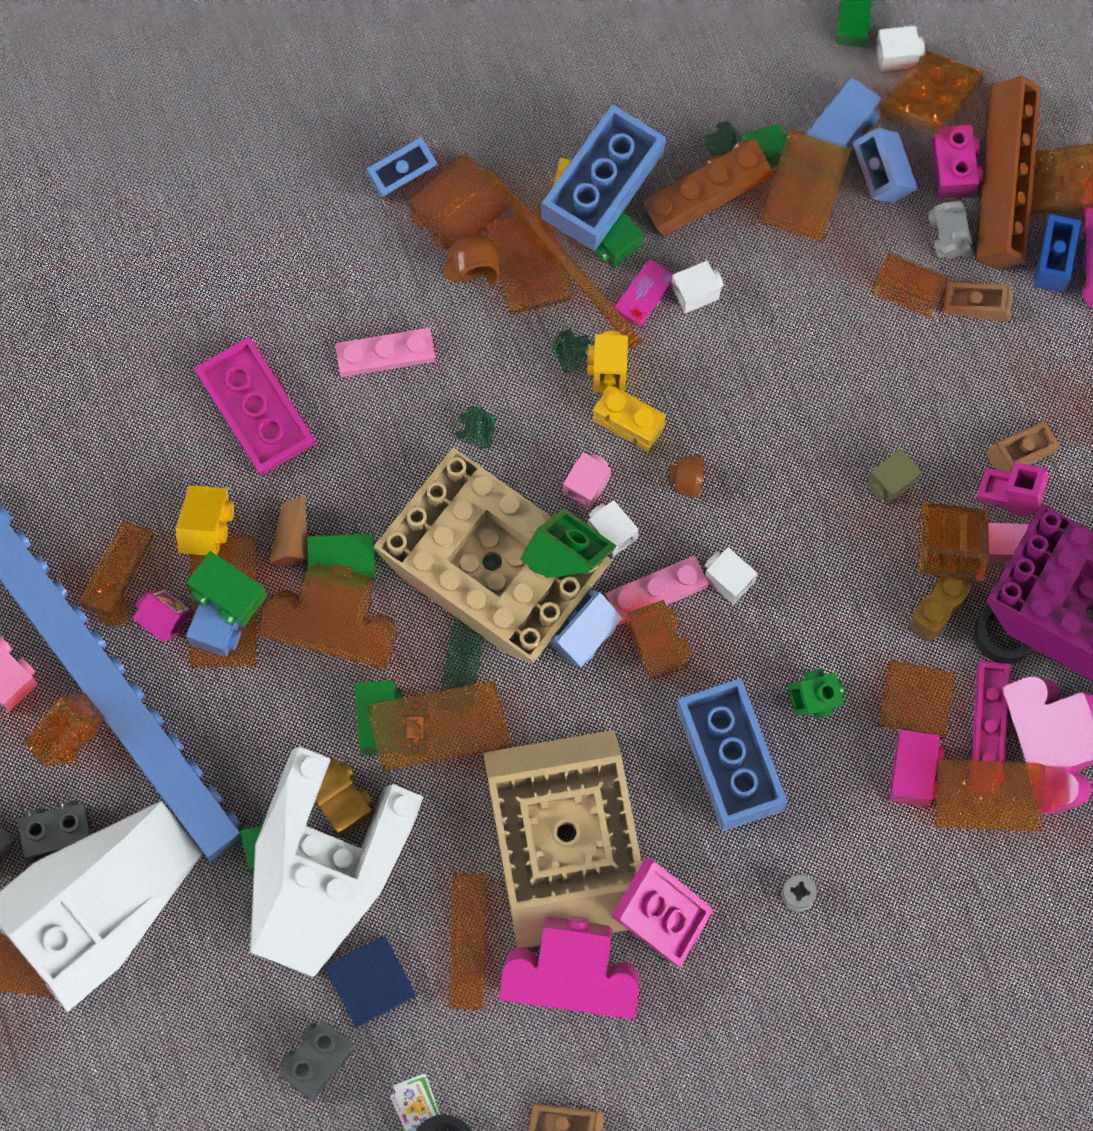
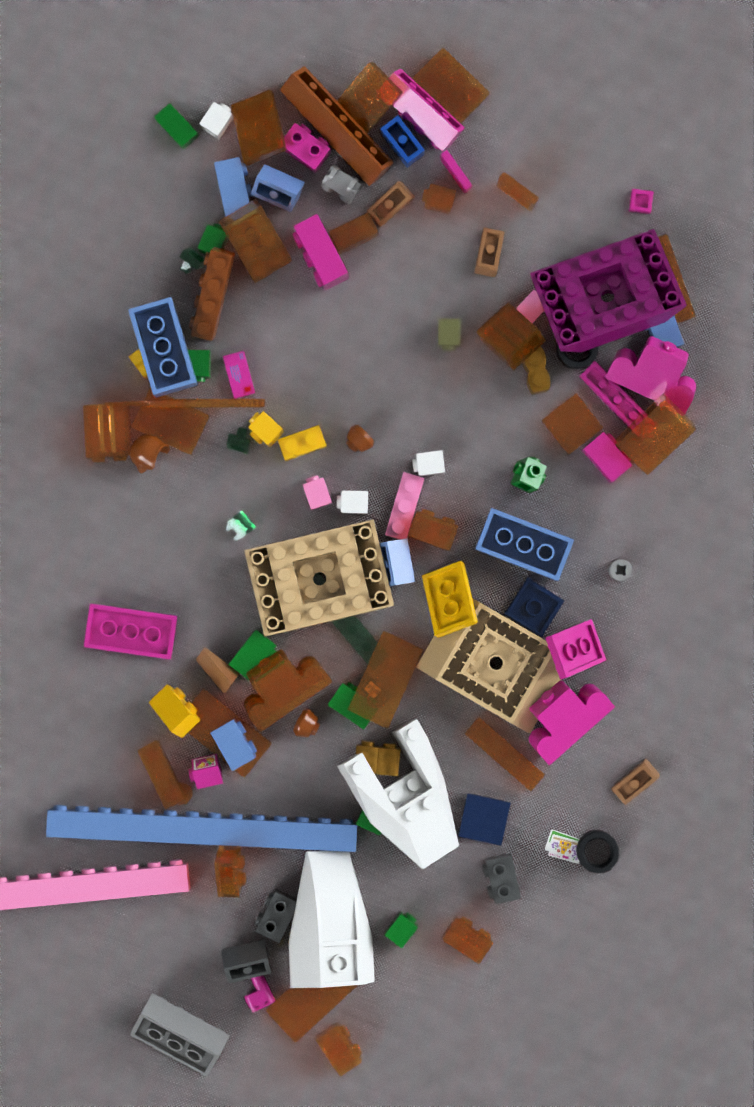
camera: 50 degrees left, 15 degrees up
(158, 991) = (401, 929): none -> green brick
(209, 1080) = (467, 939): none -> clear orange brick
(226, 590) = (226, 732): green brick -> none
(311, 682) = (306, 724): none -> dark orange cone
(385, 352) = (157, 538): bright pink plate -> none
(401, 167) = (62, 446): medium blue brick -> none
(565, 547) = (352, 539): green slope -> none
(594, 720) = (449, 599): none -> yellow plate
(670, 830) = (534, 607): none -> dark blue tile
(697, 286) = (259, 345): white brick -> none
(855, 263) = (320, 252): none -> dark pink brick
(1018, 490) = (510, 277): dark pink brick -> none
(1031, 345) = (439, 199): none -> clear orange brick
(1077, 338) = (455, 171): none -> dark pink tile

